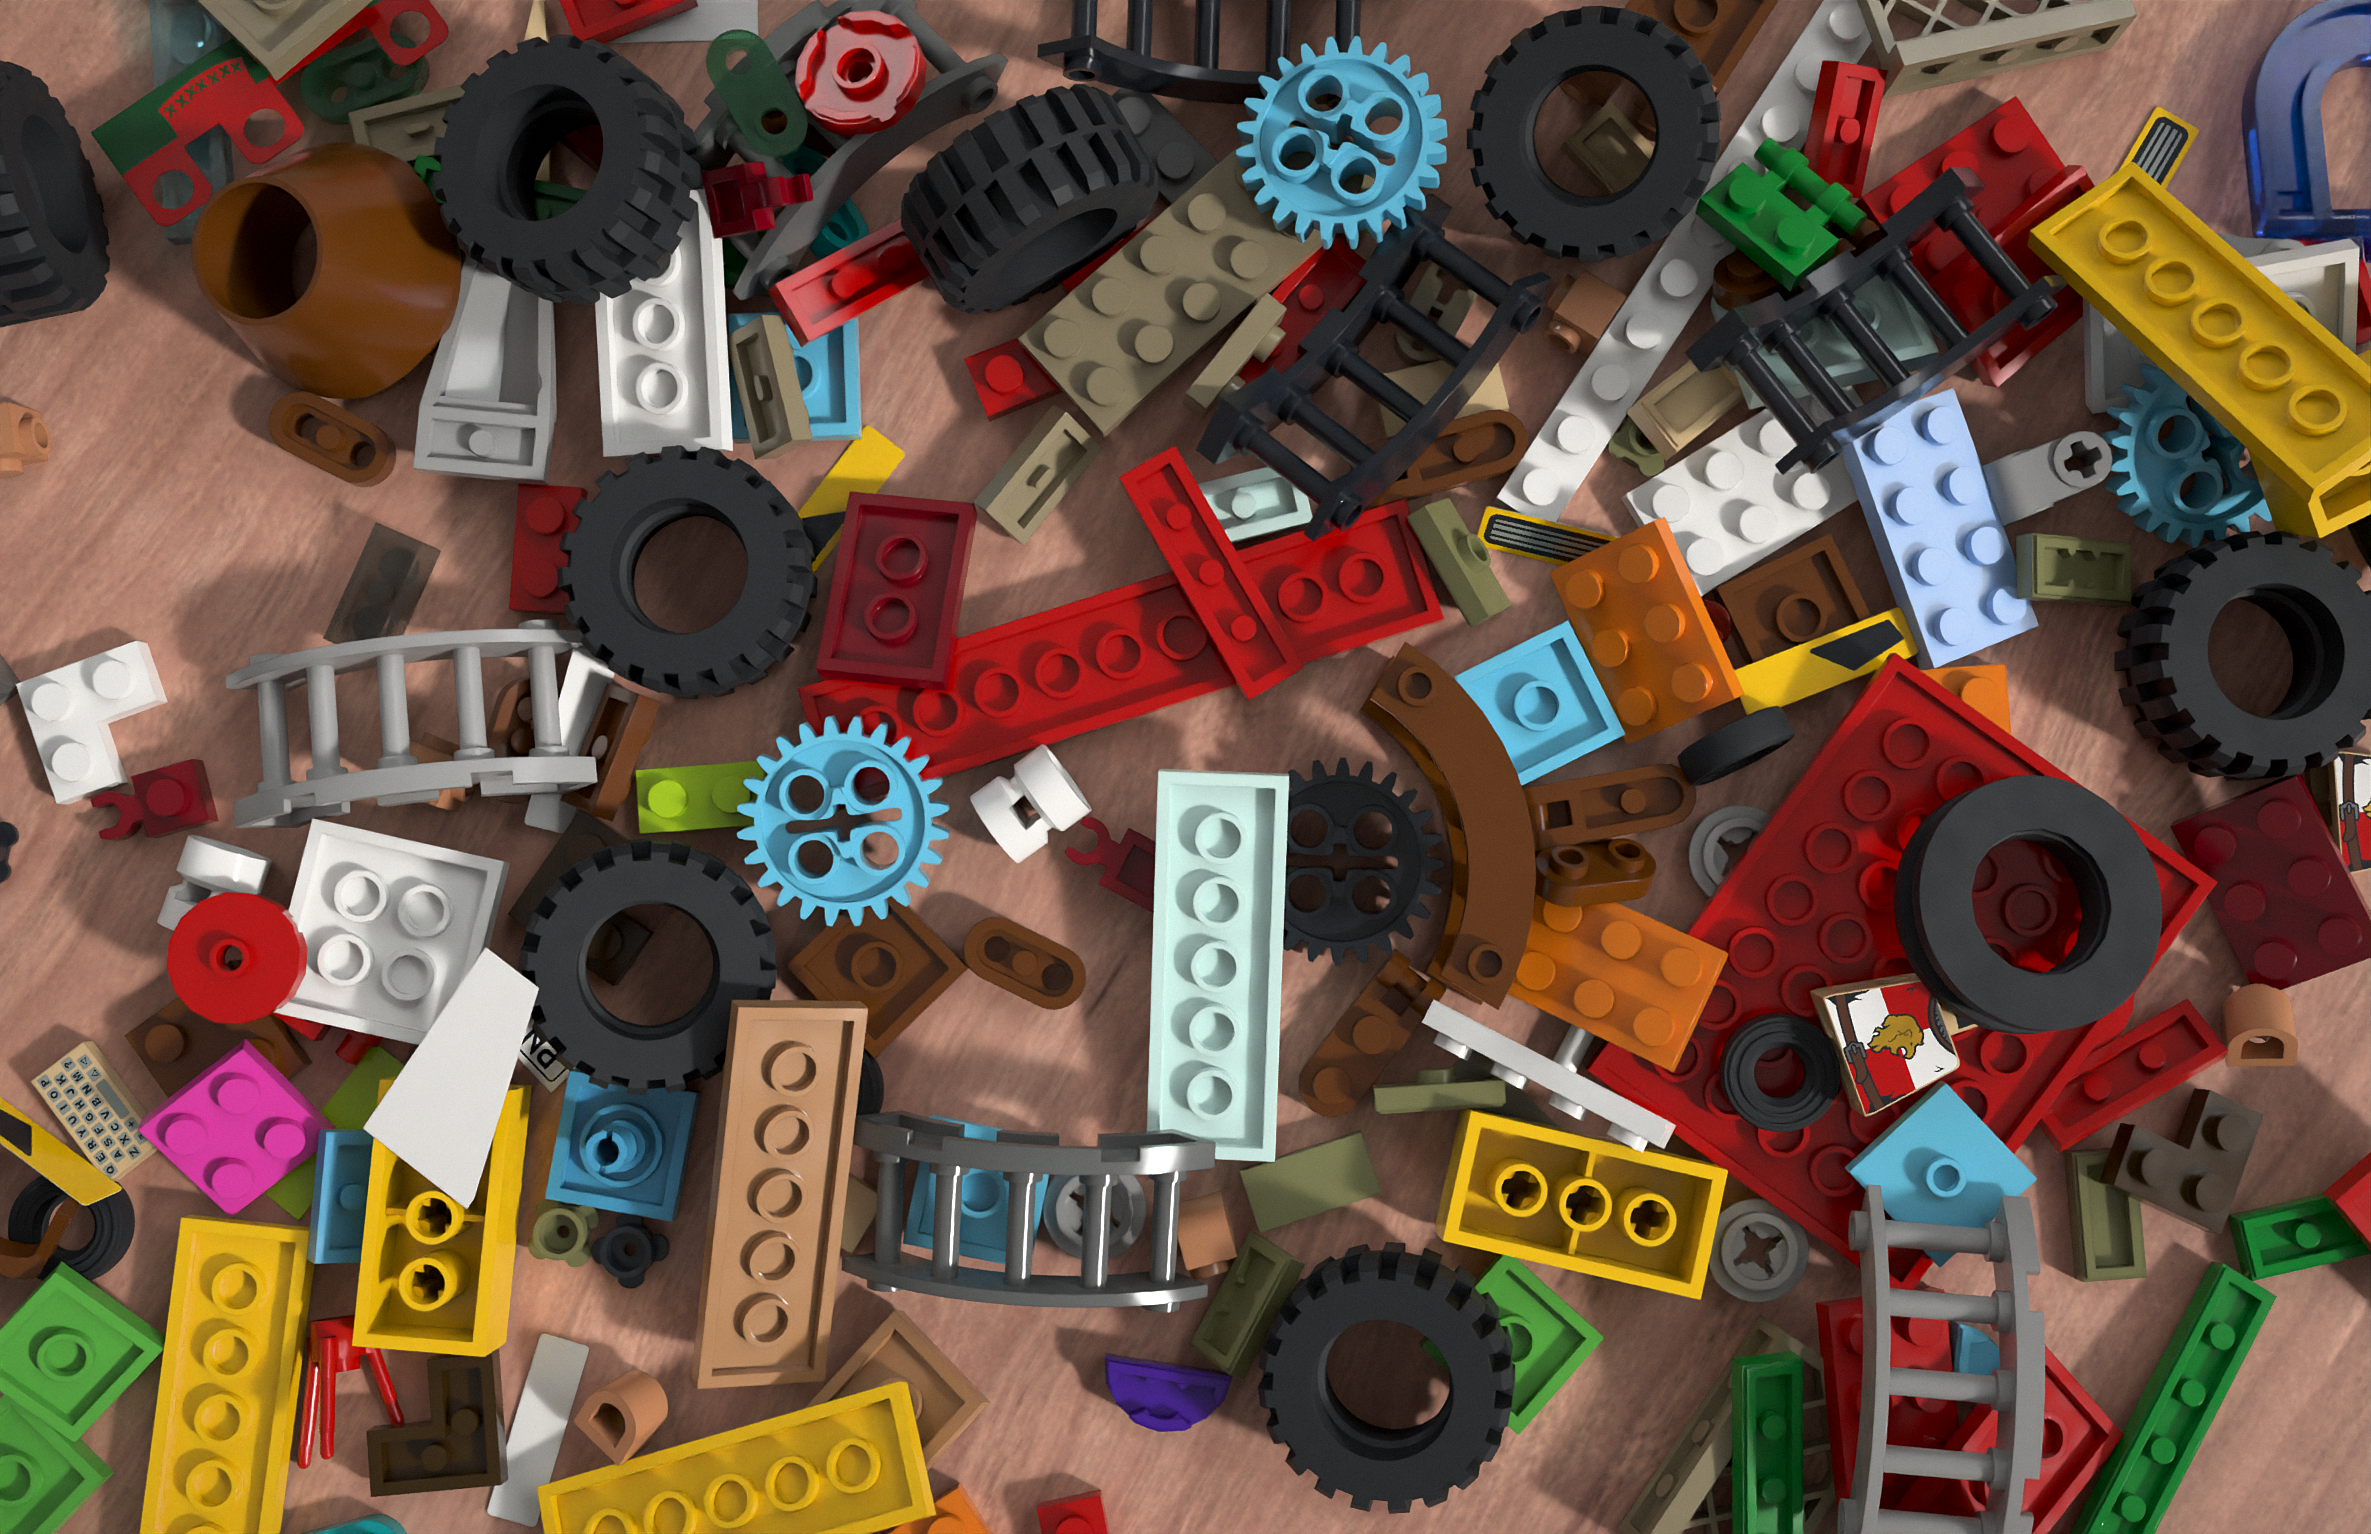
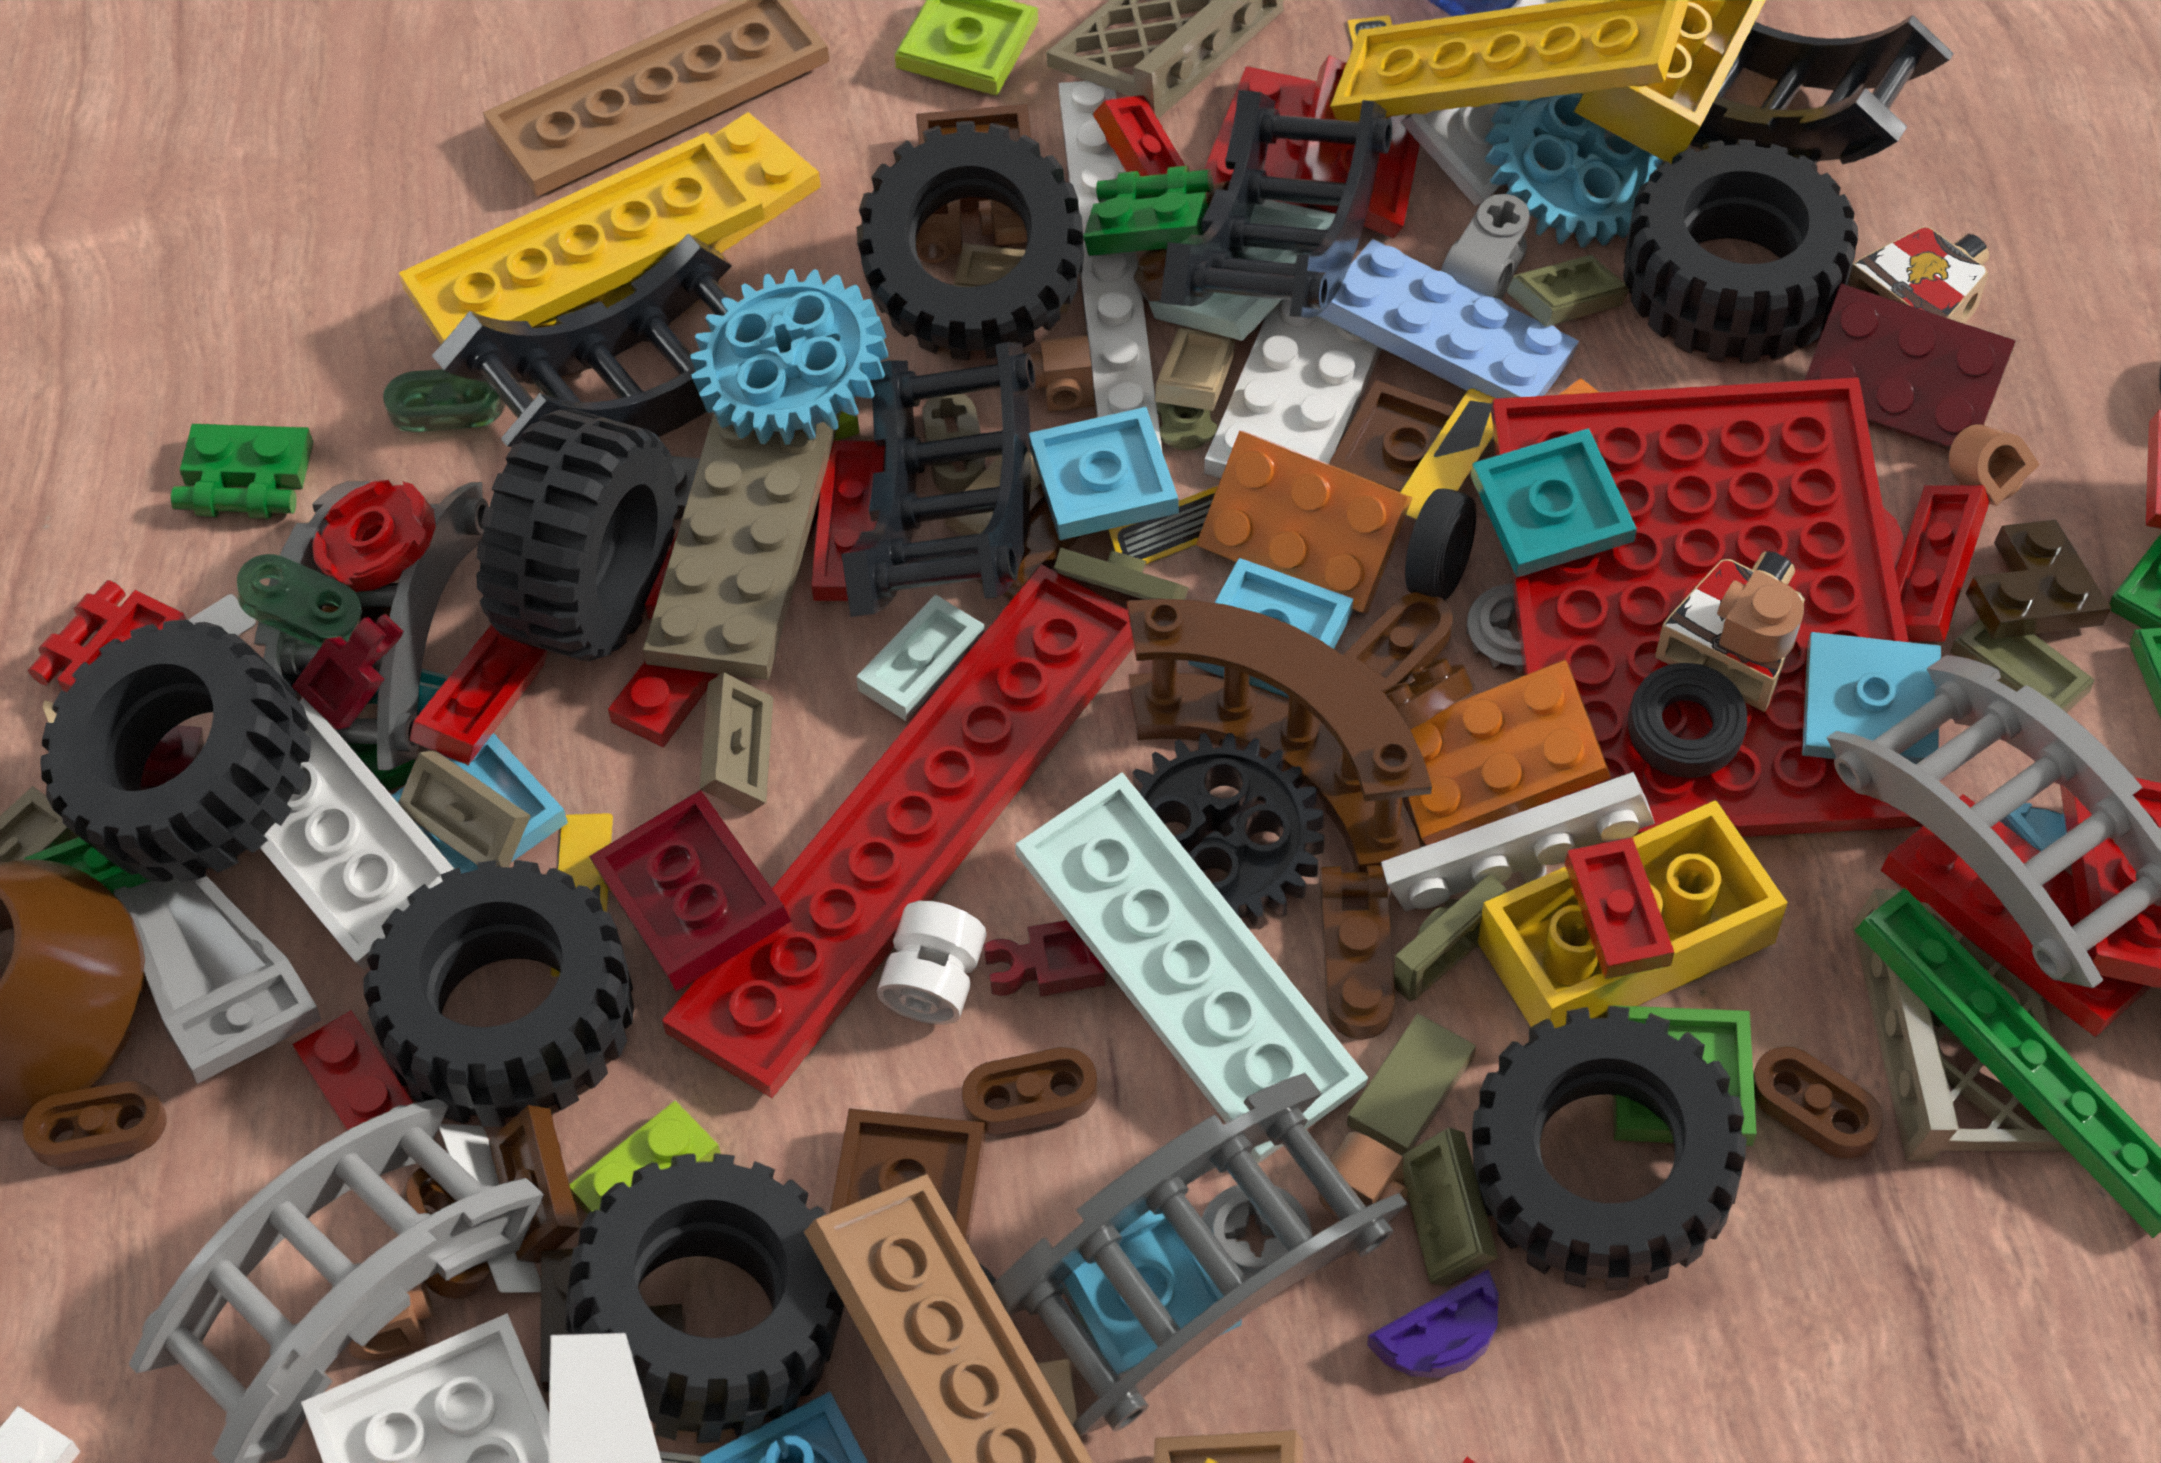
camera: 30 degrees left, 30 degrees down
(383, 587) = (220, 1184): clear smoke plate -> none
(853, 877) = (742, 1033): medium azure gear -> none
(1211, 573) = (936, 700): red plate -> none
(1253, 338) = (830, 528): dark tan plate -> none
(1519, 458) = (1103, 473): none -> medium azure plate
(1560, 1212) = (1619, 908): none -> red plate
(1590, 1439) = (1819, 1102): none -> reddish brown plate
(1785, 1256) = (1829, 872): light grey gear -> none
(1848, 800) = (1553, 502): none -> teal plate
(1900, 1067) = (1760, 618): none -> nougat plate
(2115, 894) = (1728, 520): black tyre -> none

